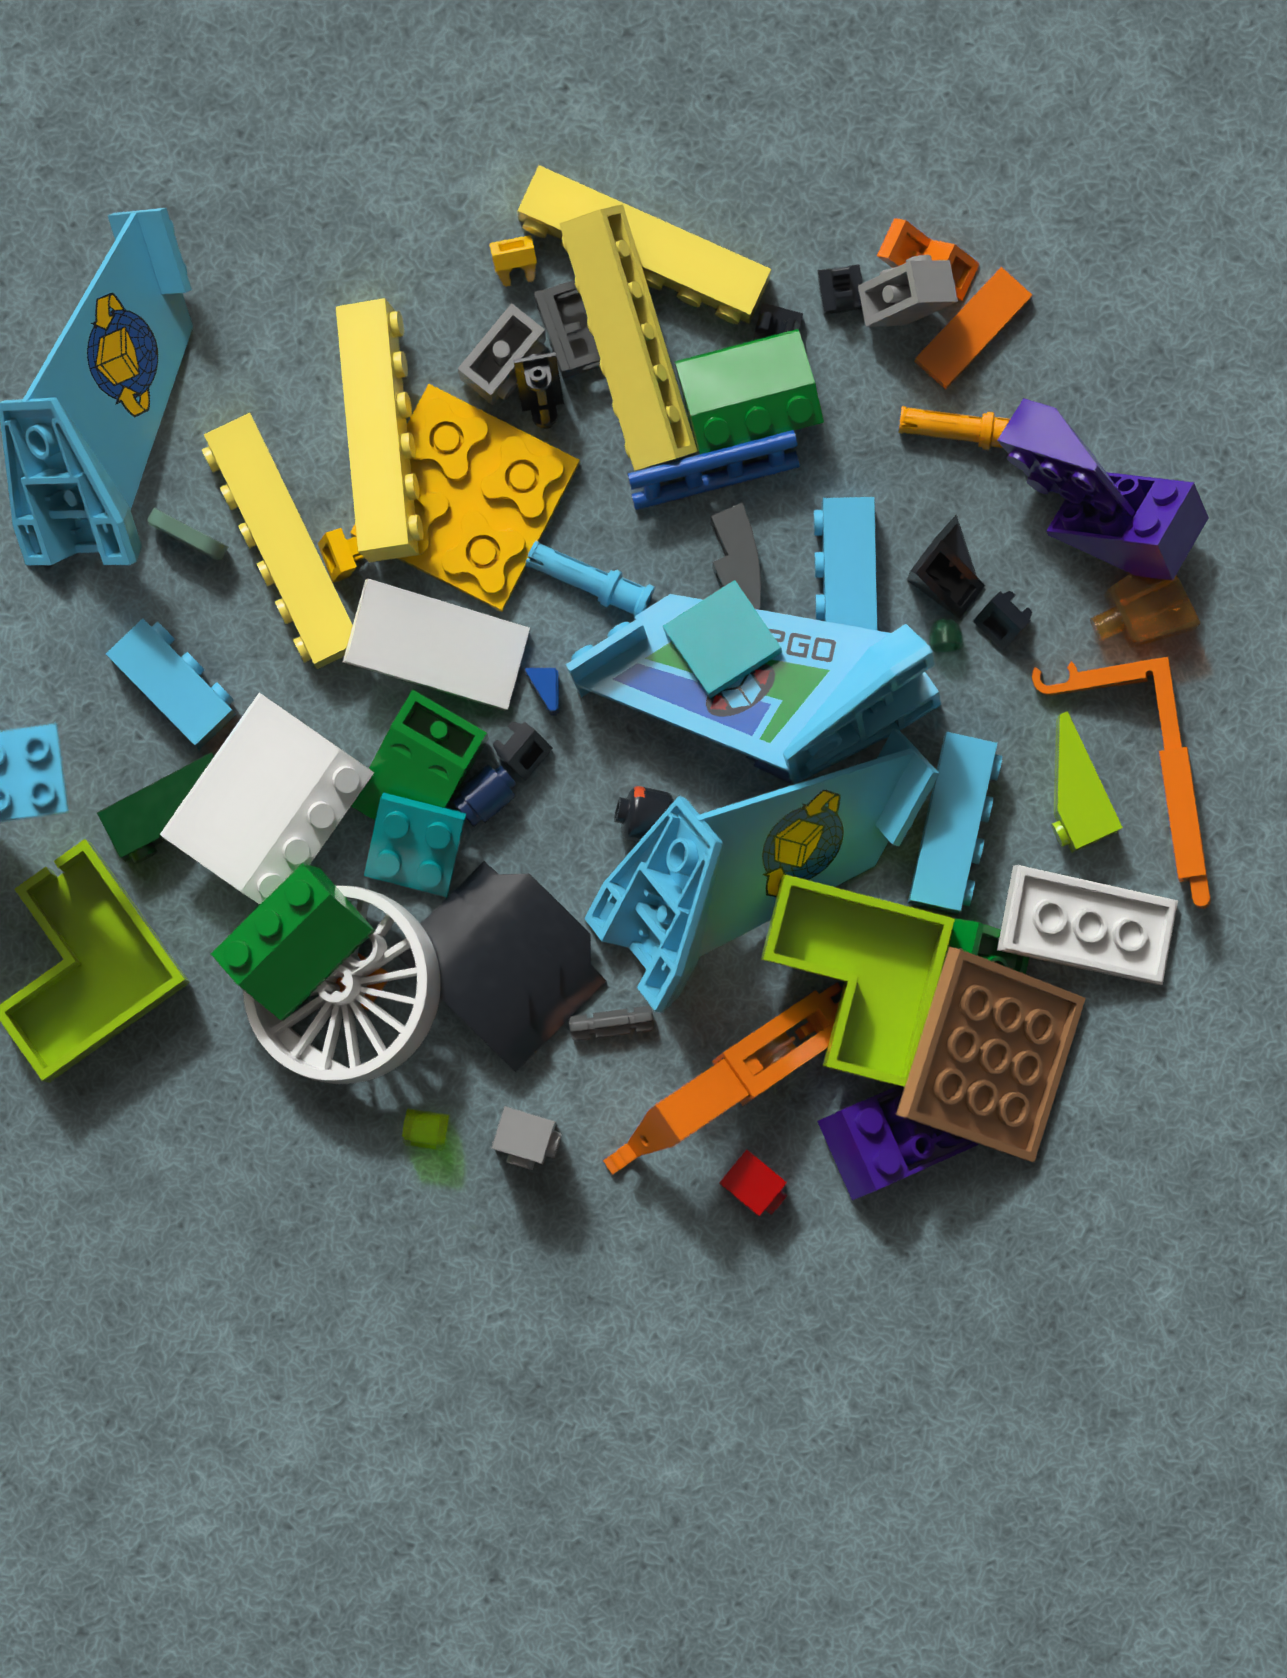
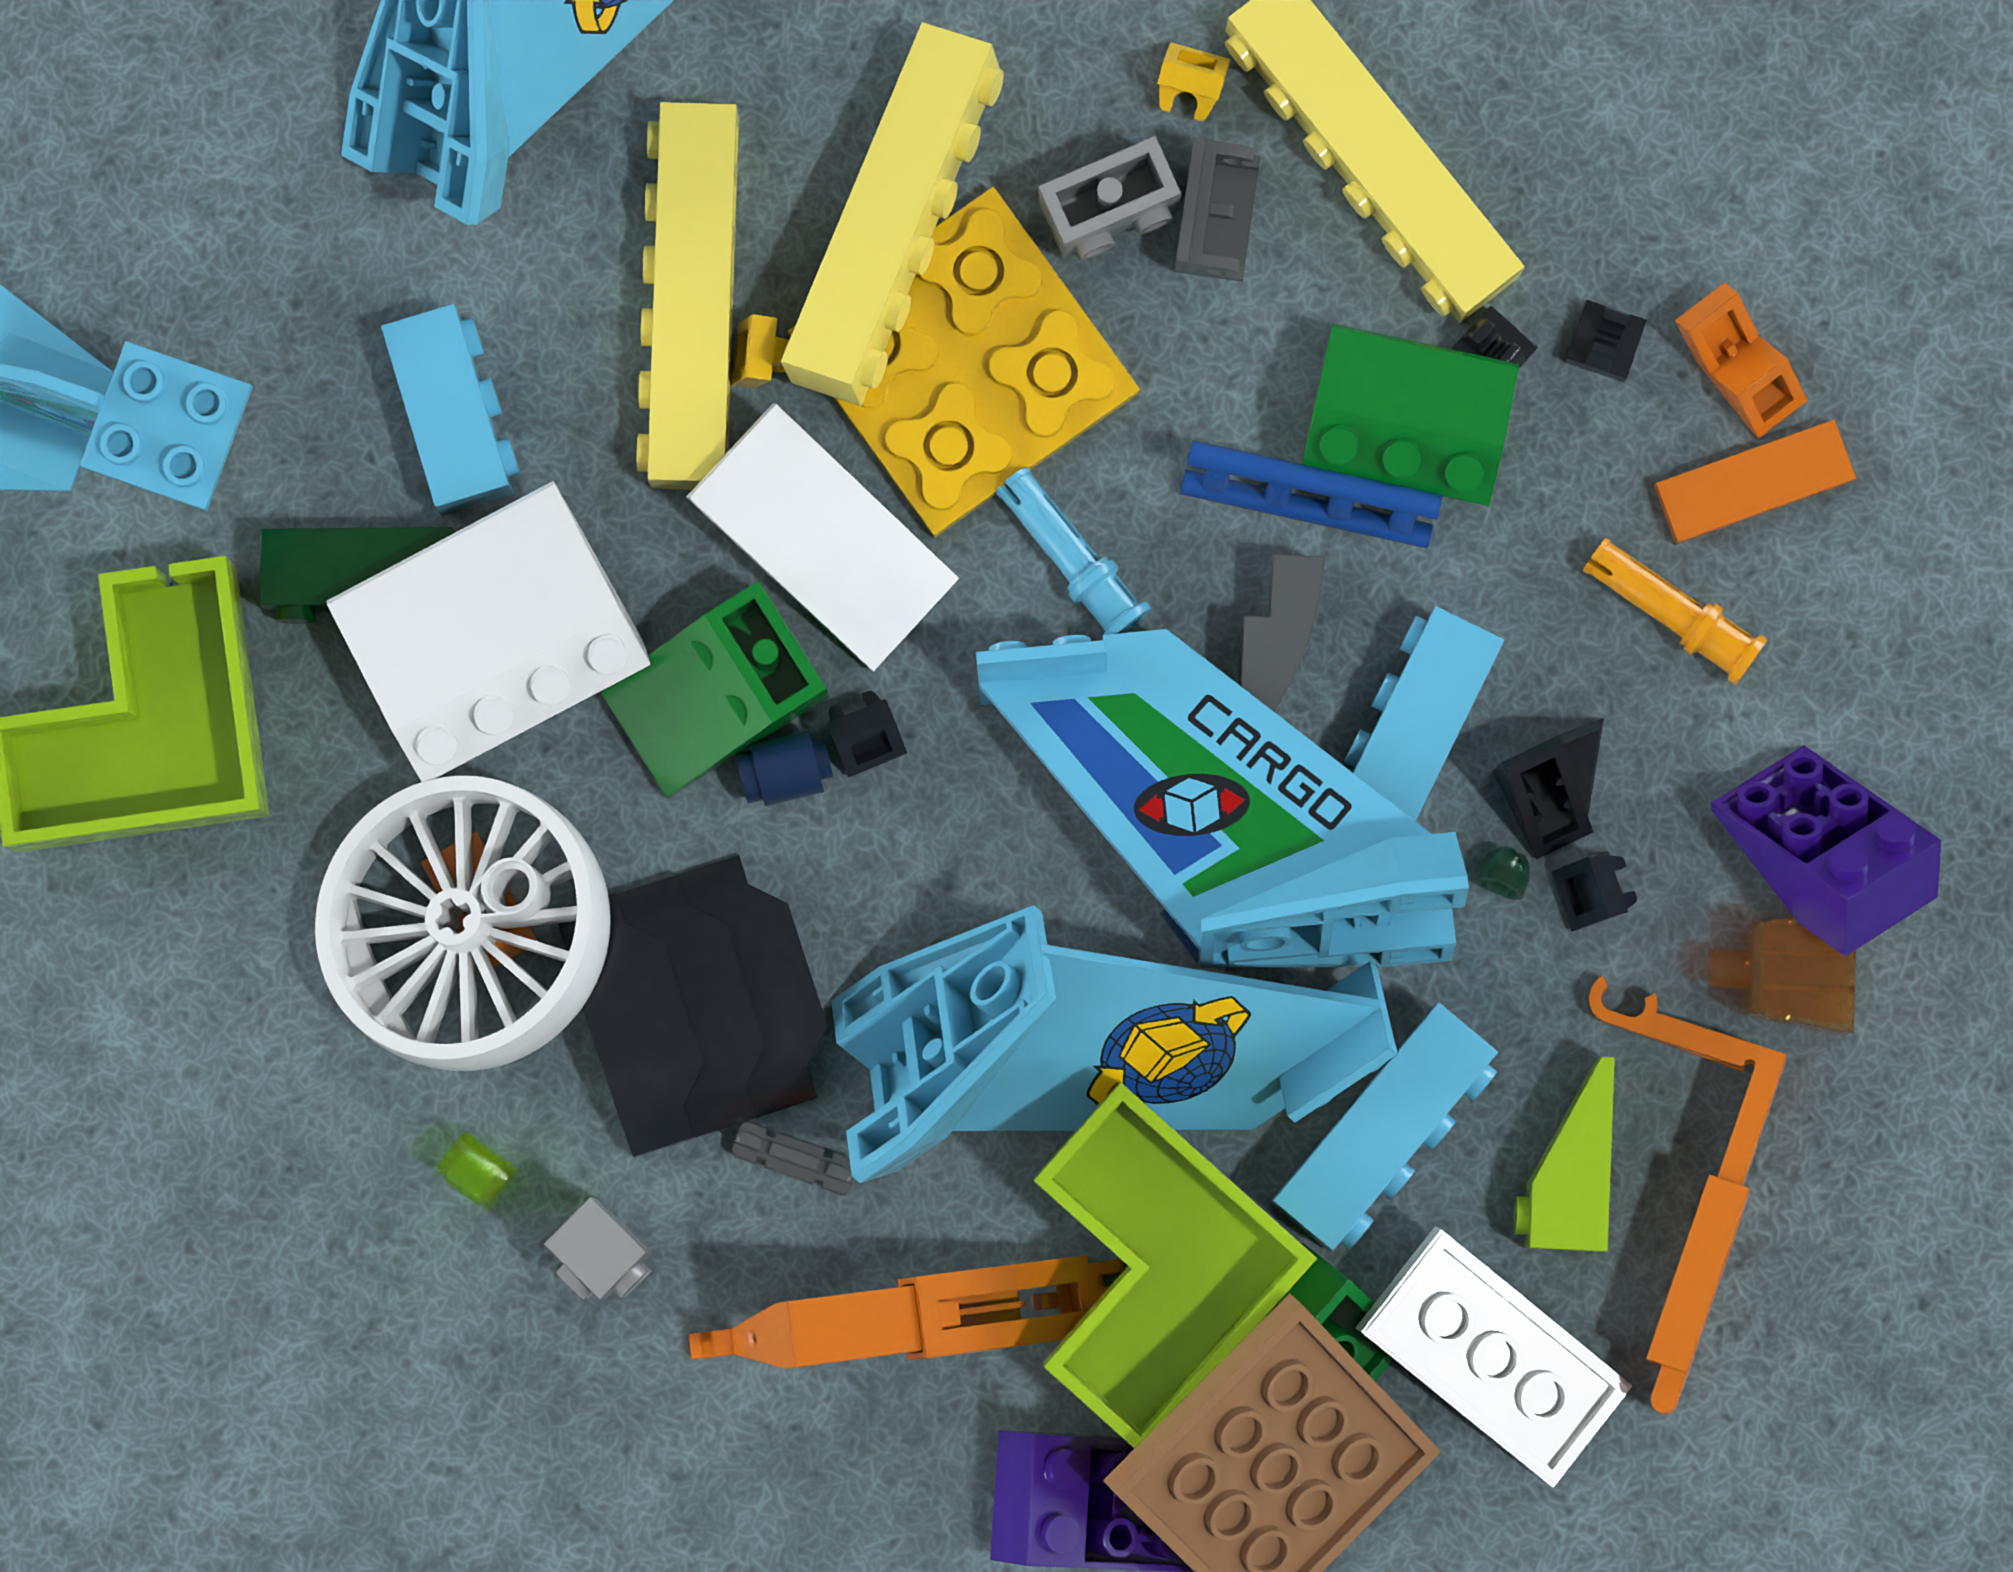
camera: 25 degrees right, 0 degrees up
(187, 534) = (572, 223): sand green tile -> none
(293, 941) = (425, 833): green slope -> none
(415, 844) = (657, 787): teal plate -> none
(539, 387) = (1136, 266): black hinge -> none
(547, 686) = (941, 668): blue slope -> none
(628, 337) = (1286, 259): light yellow brick -> none
(640, 811) = (978, 897): black head -> none
(722, 639) = (1202, 725): tile -> none
(754, 1184) = (871, 1471): red brick -> none
(908, 292) = (1690, 390): light grey brick -> none
(1058, 460) = (1776, 716): dark purple slope -> none

